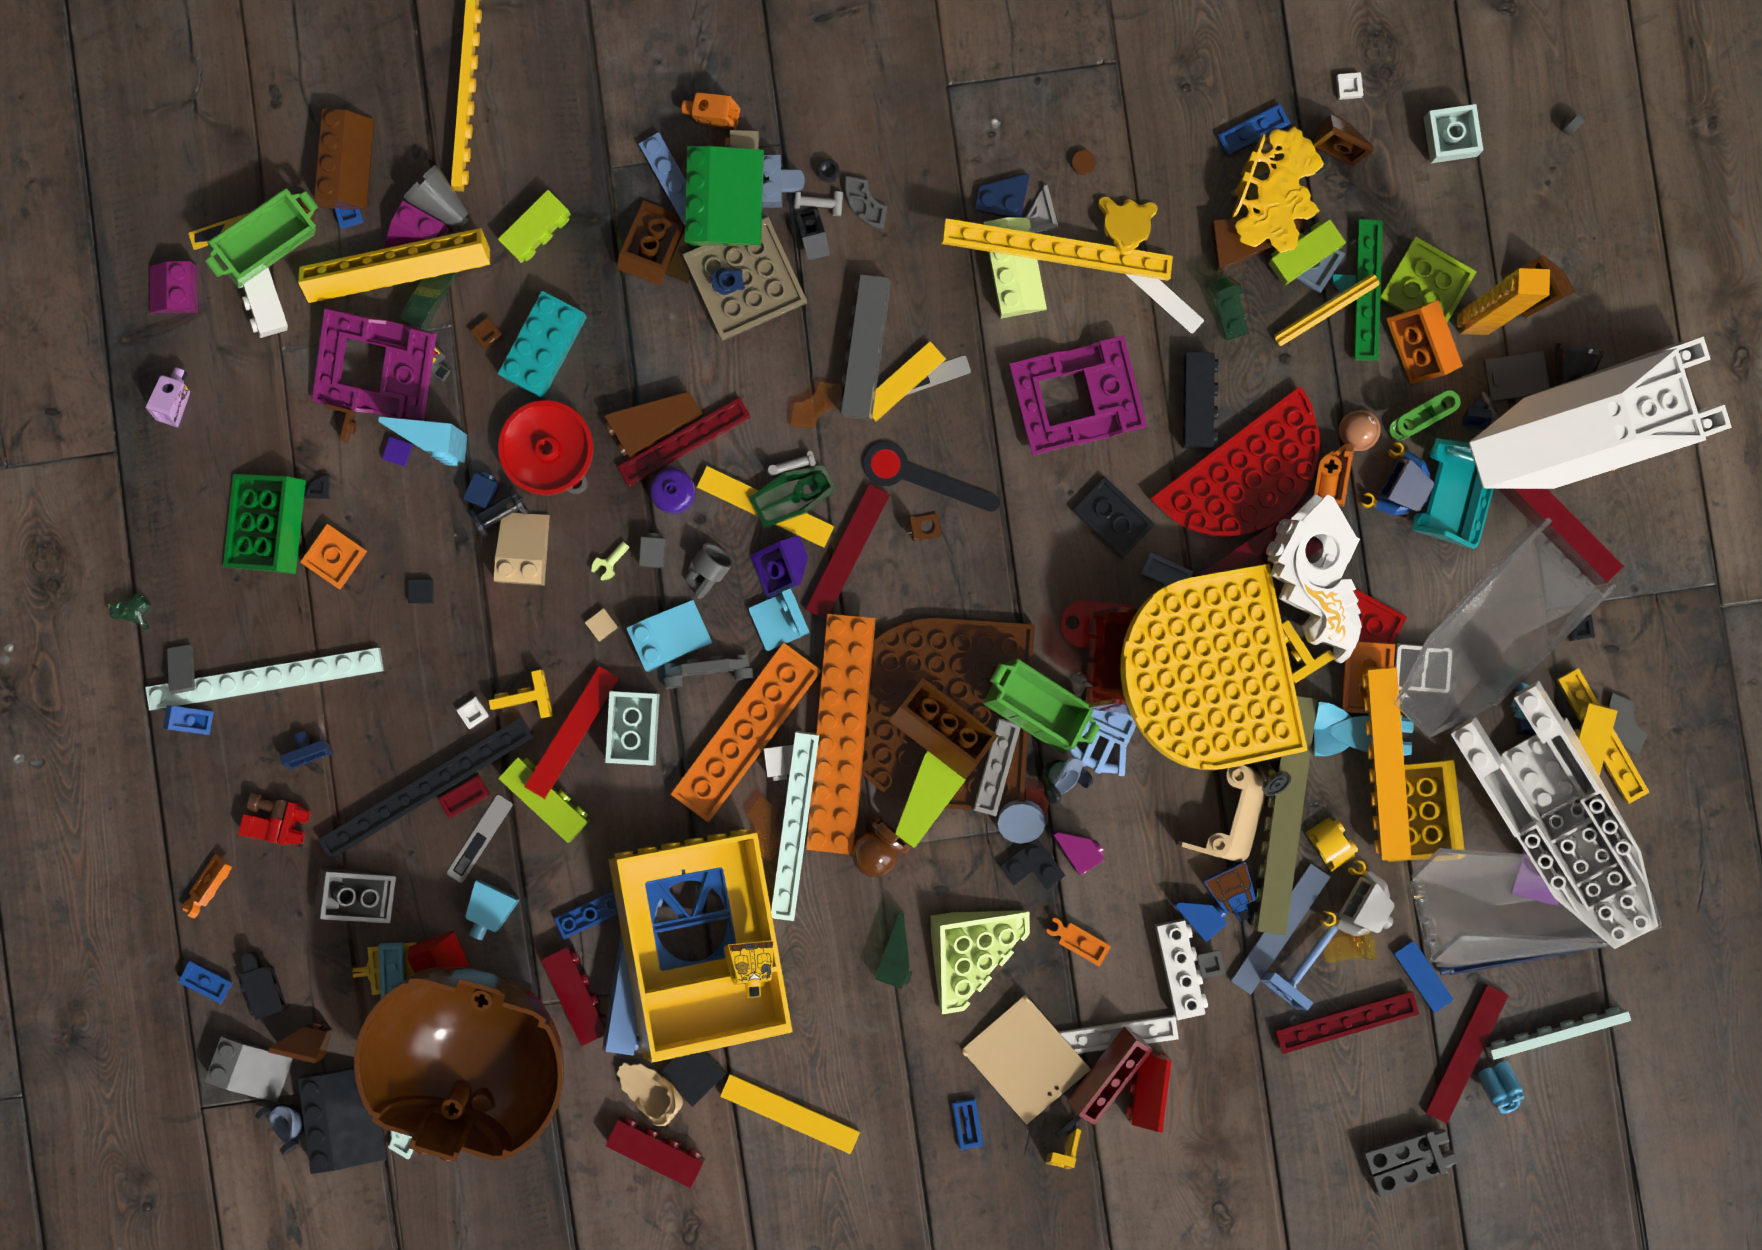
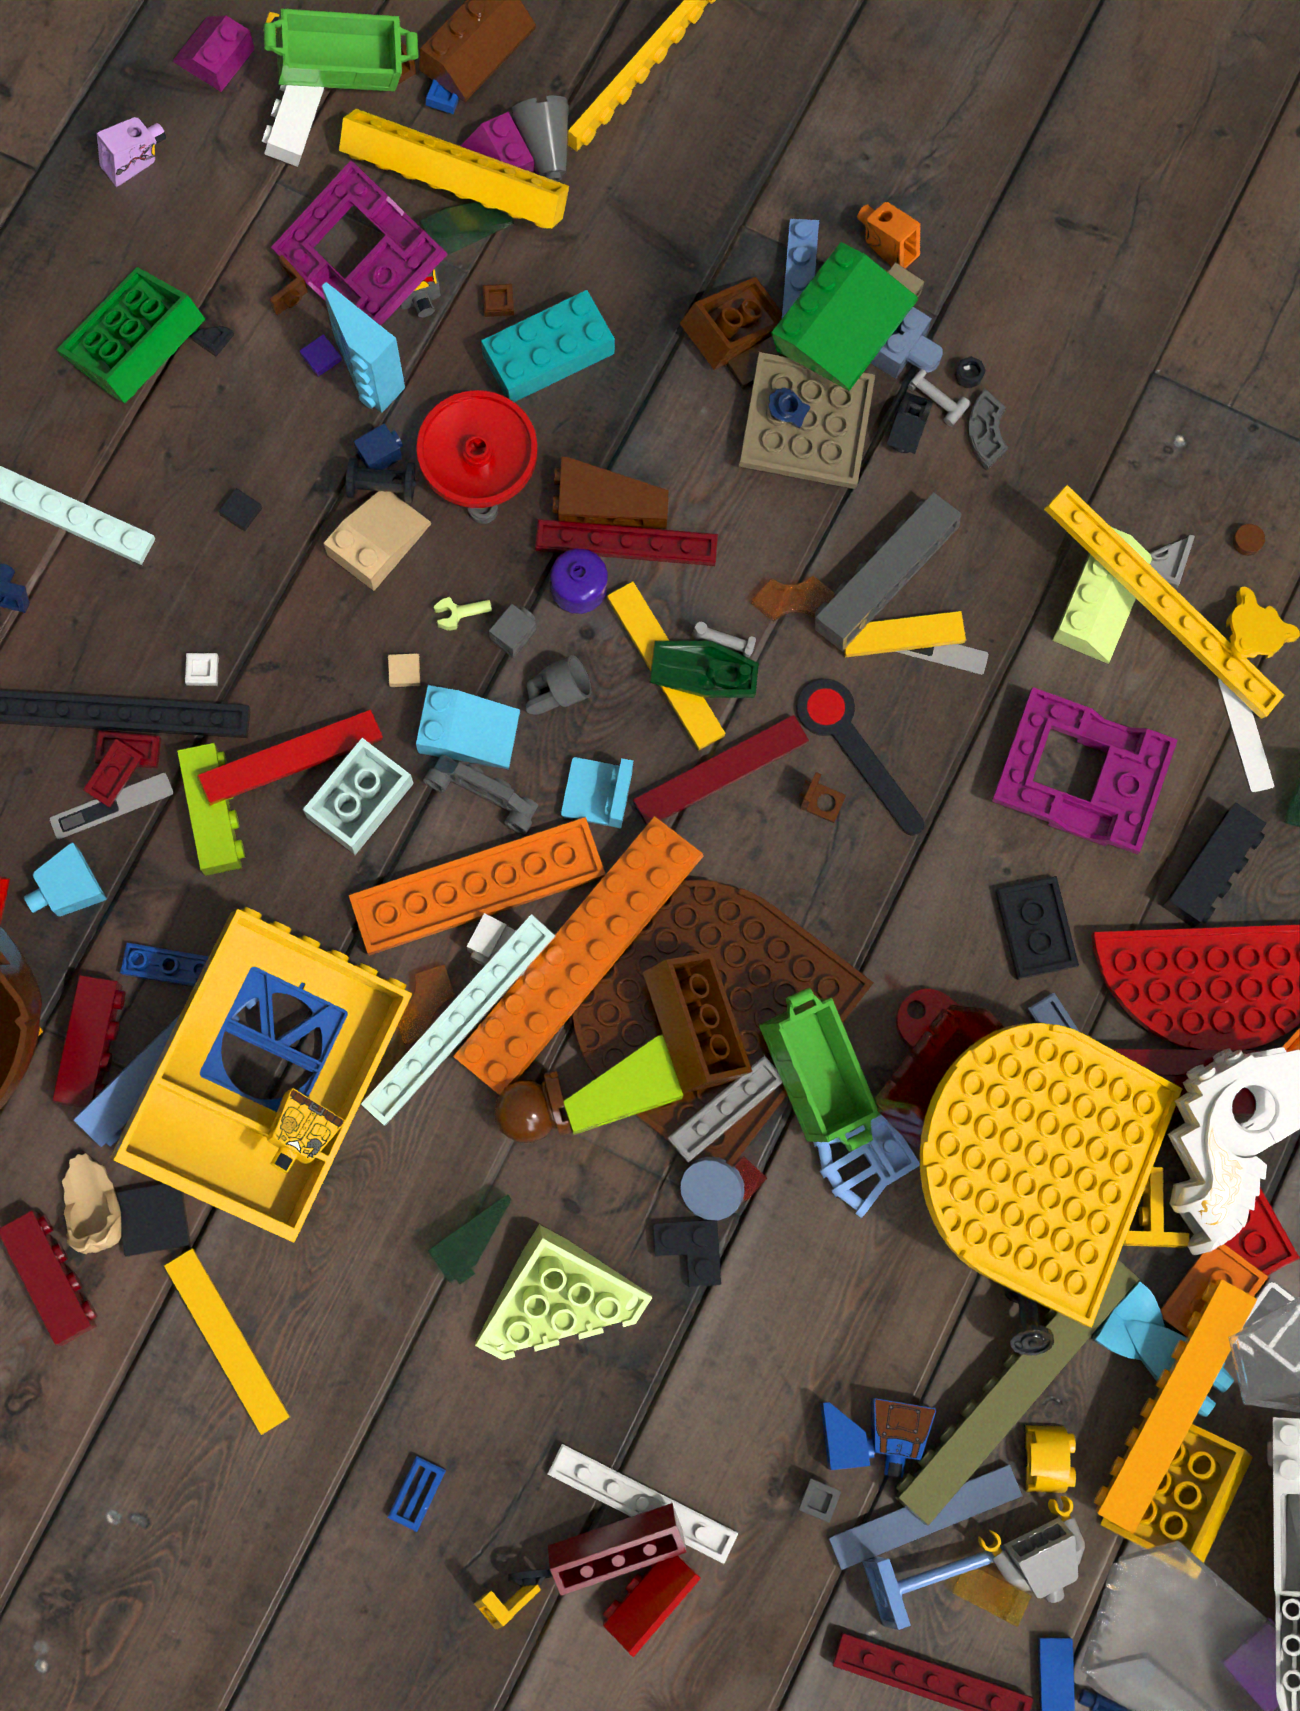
camera: 25 degrees right, 10 degrees down
(333, 556) = (176, 413): orange plate -> none
(467, 818) = (113, 772): none -> dark red plate
(526, 695) = (270, 687): yellow bracket -> none
(535, 227) = (624, 228): lime brick -> none
(780, 565) = (640, 733): dark purple slope -> none
(1003, 197) = (1139, 517): dark blue wing -> none
(1026, 1059) = (534, 1465): tan door -> none
(1062, 776) = (793, 1171): cap -> none
(1080, 851) = (756, 1263): magenta slope -> none
(1080, 942) = (687, 1372): orange plate -> none
(1180, 969) = (780, 1483): white brick -> none
(1240, 839) = (942, 1381): tan windscreen -> none

